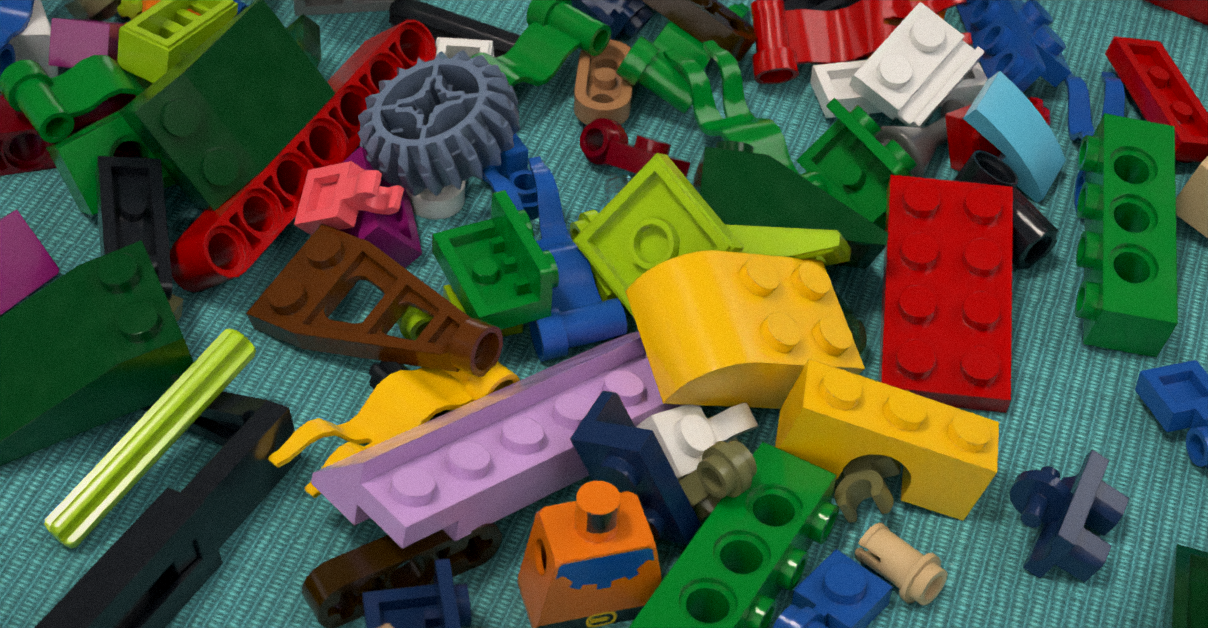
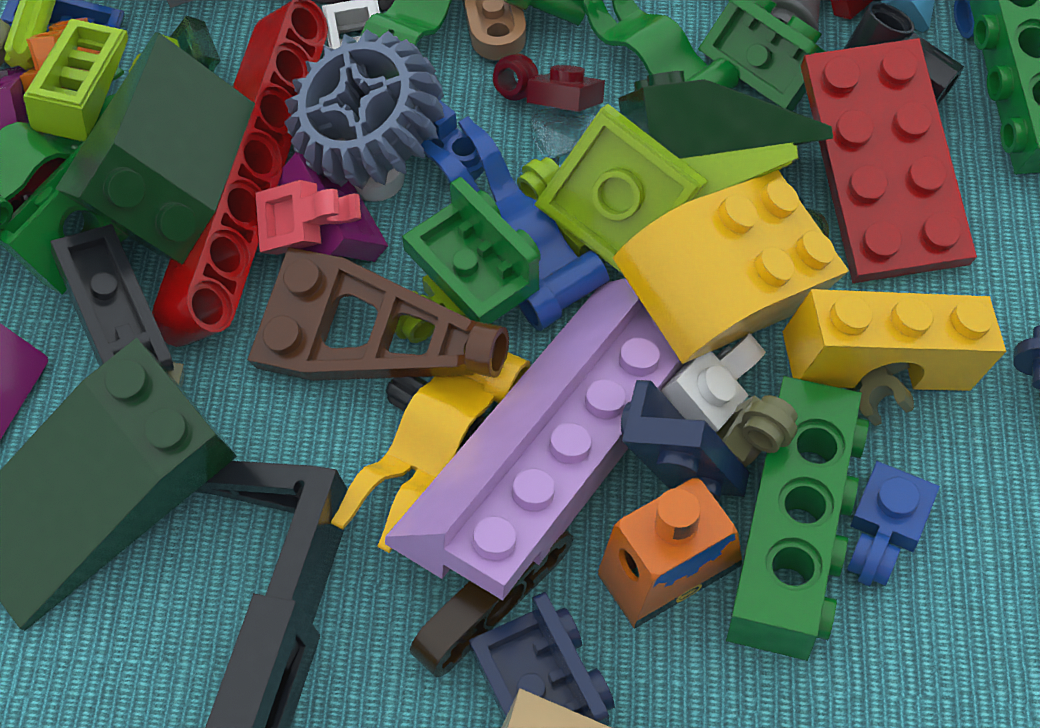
camera: 10 degrees left, 15 degrees up
(149, 438) = (211, 533): lime axle -> none
(912, 572) = (939, 459): tan pin -> none

